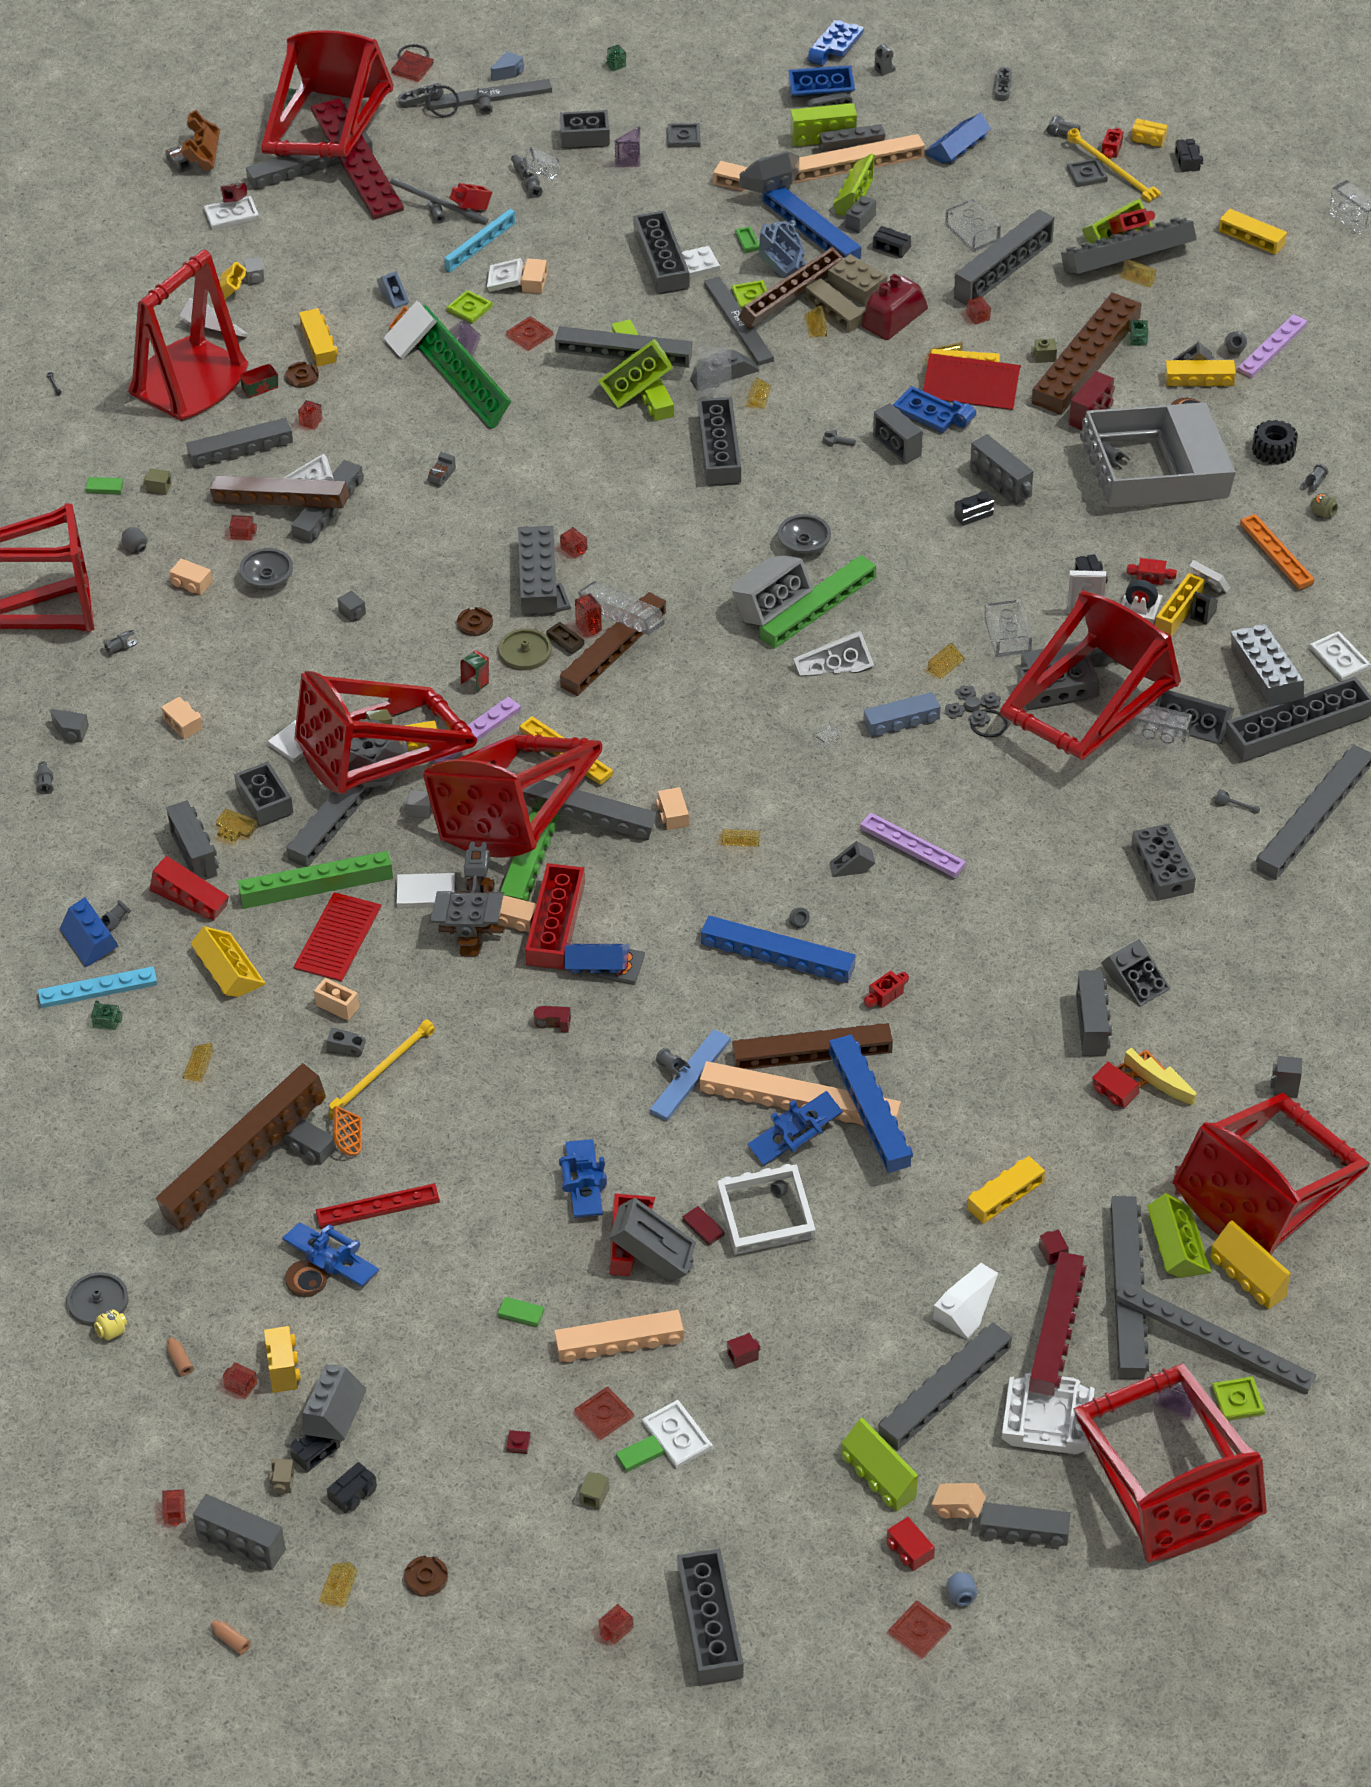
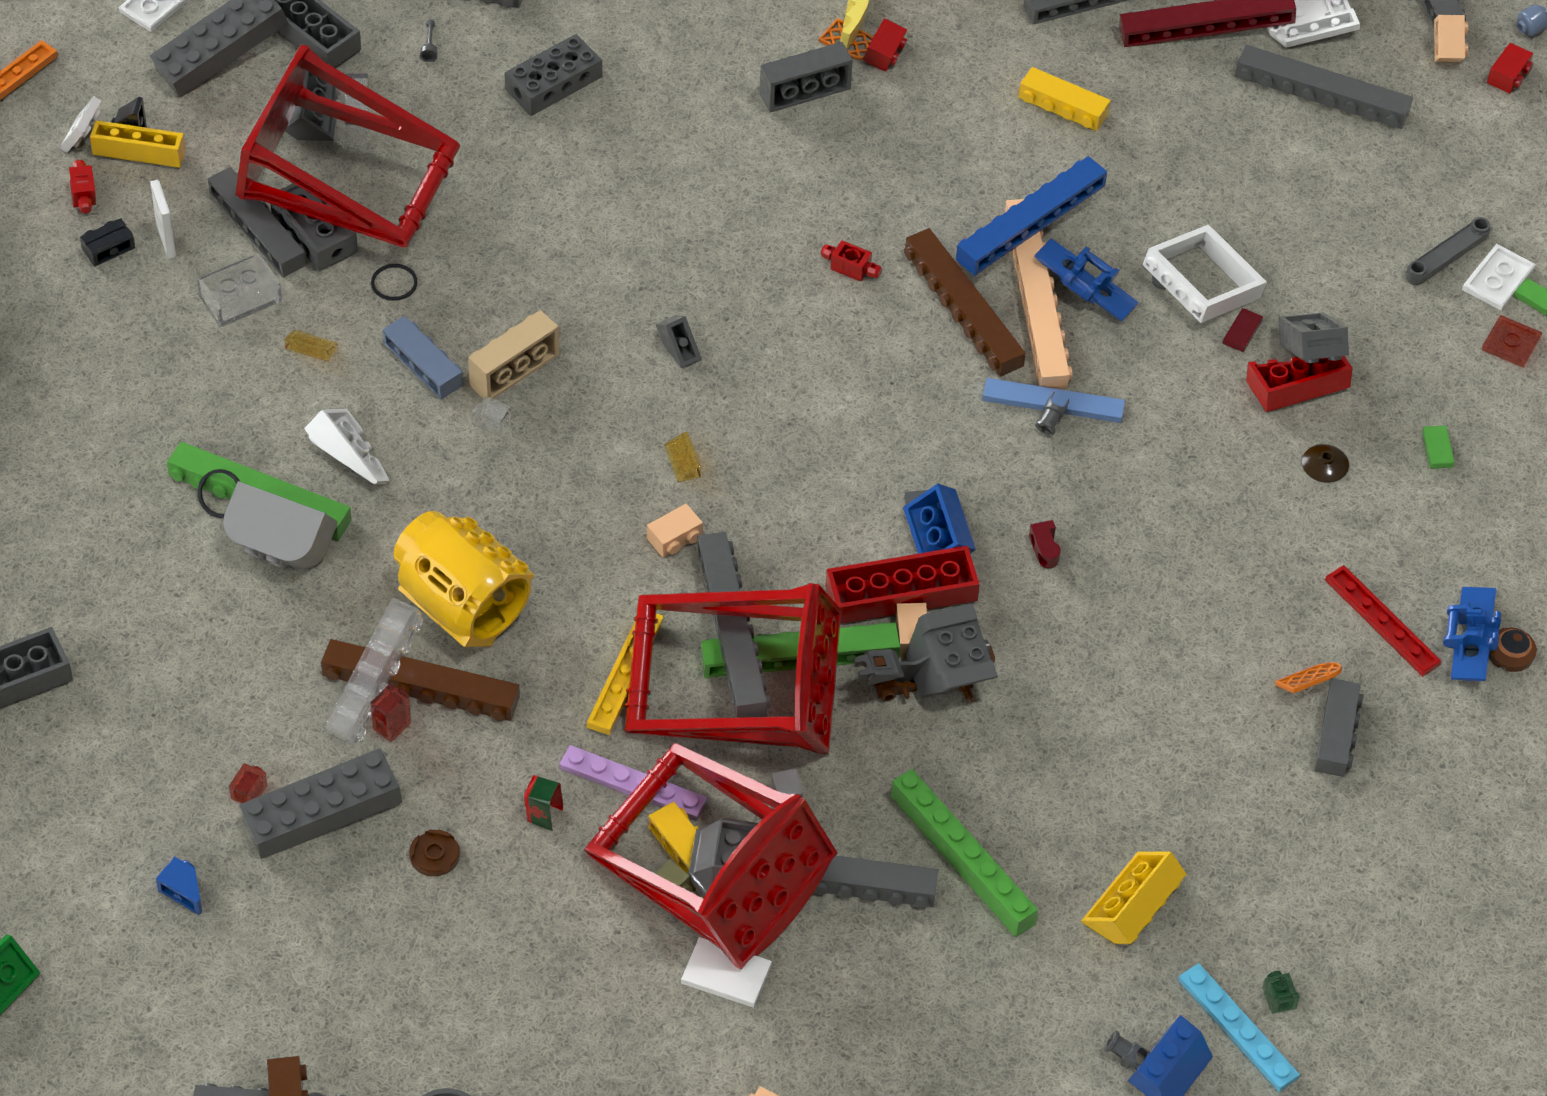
camera: 115 degrees left, 5 degrees up
(187, 889) = (1051, 983): red wedge -> none
(191, 840) = (975, 1004): dark grey piece -> none
(198, 1062) = (1290, 869): clear yellow slope -> none
(235, 825) = (915, 981): clear yellow hinge -> none
(241, 1147) = (1409, 746): reddish brown brick -> none
(263, 793) = (854, 961): dark grey brick -> none
(336, 999) = (1135, 755): light nougat brick -> none
(337, 936) = (1029, 805): red window -> none
(345, 1042) = (1188, 730): dark grey leg -> none
(351, 606) = (470, 999): dark grey brick -> none
(421, 889) = (915, 738): white tile -> none
(424, 1029) = (1283, 701): yellow hinge -> none
(442, 469) = (156, 994): dark grey leg -> none
(513, 497) = (180, 884): none -> blue slope
(525, 649) = (463, 778): olive piece -> none
(544, 1237) = (1322, 469): none -> dark brown dish
(565, 637) = (428, 737): dark brown plate -> none
(590, 1181) = (1265, 434): blue piece -> none
(619, 1336) = (1422, 351): light nougat brick -> none
(672, 662) = (460, 577): none -> yellow piece
(719, 1403) = (1448, 251): none -> dark grey piece
(743, 1350) = (1378, 248): dark red brick -> none
(778, 949) = (842, 371): blue brick -> none
(799, 917) = (785, 365): dark grey tile -> none
(804, 533) = (146, 523): dark grey dish -> none
(833, 572) = (200, 486): none -> black piece
(873, 756) = (513, 355): none -> tan brick
(880, 1465) = (1448, 105): lime slope -> none
(912, 845) = (625, 296): lavender plate -> none
(965, 1302) = (1214, 100): white wedge -> none
(973, 704) = (371, 302): dark grey plant -> none
(974, 508) = (29, 379): black brick -> none
(1051, 1244) = (1114, 47): dark red brick -> none
(1136, 973) = (720, 66): dark grey slope -> none
(1143, 599) = (136, 181): plate -> none

